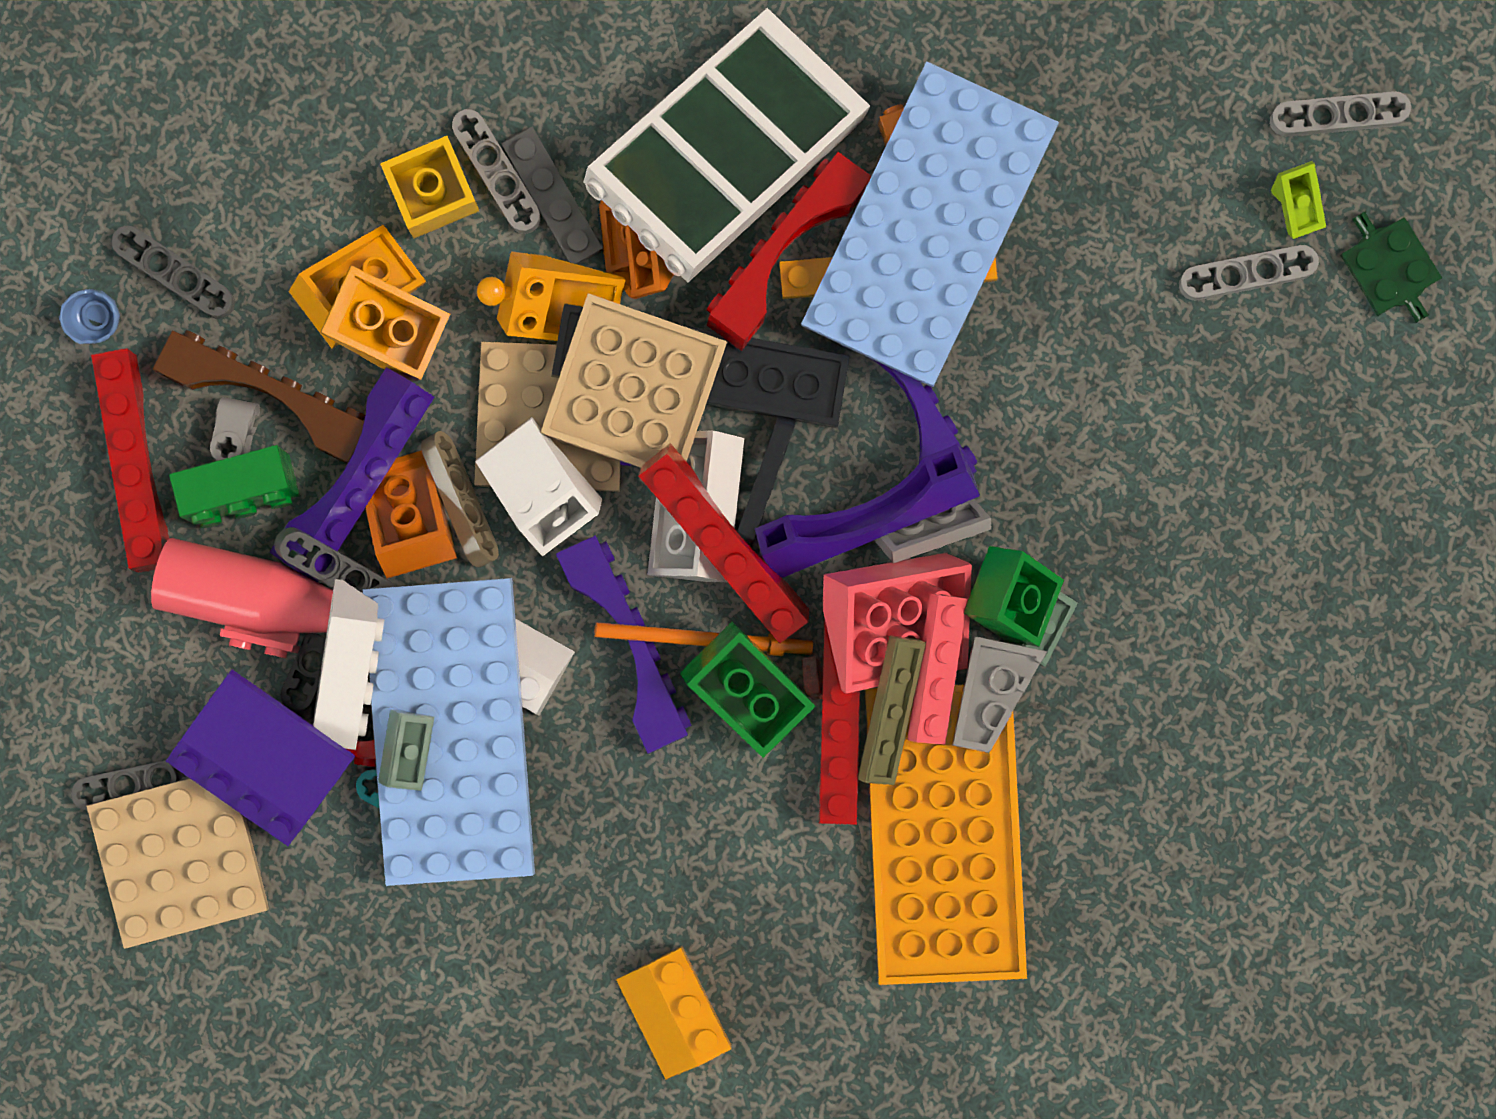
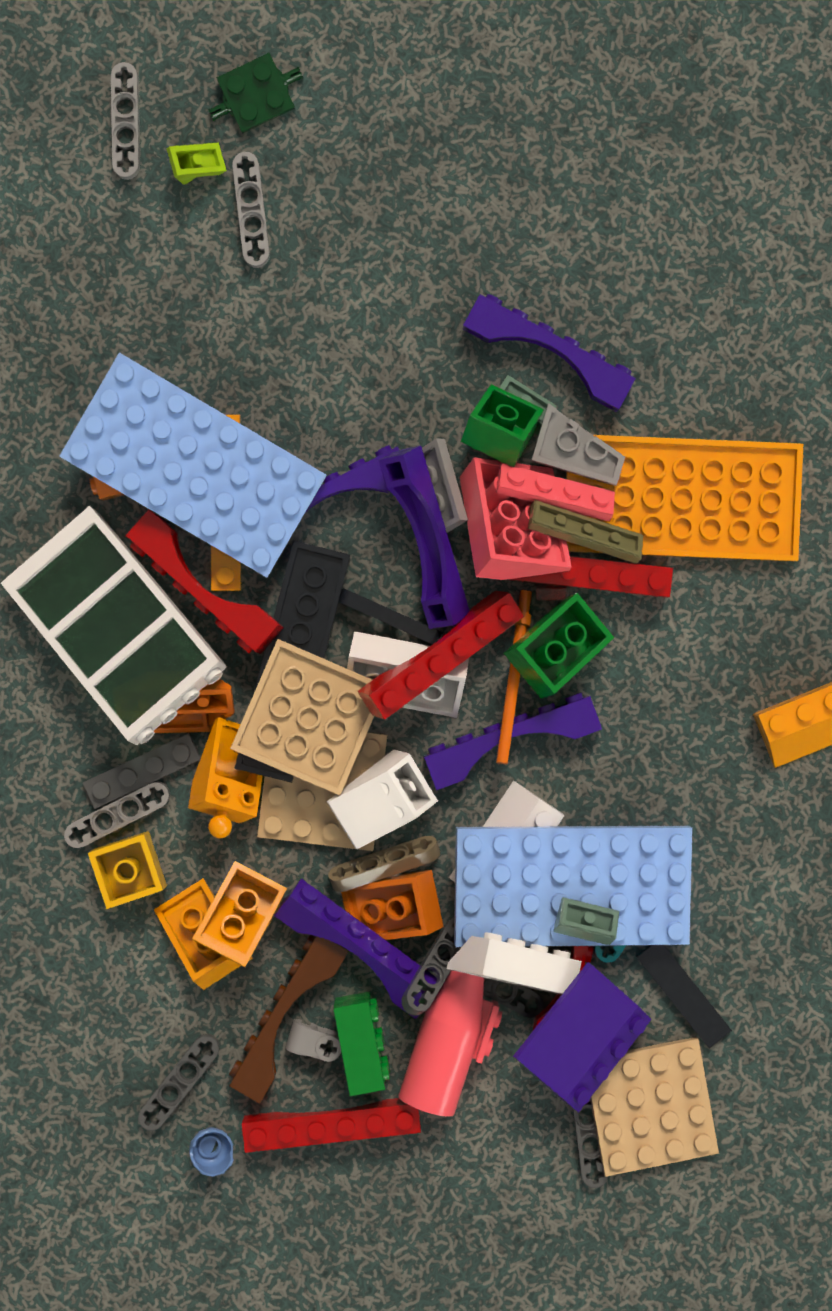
camera: 85 degrees left, 5 degrees up
(322, 888) = (684, 994): none -> black tile
(1139, 580) = (496, 323): none -> dark purple arch

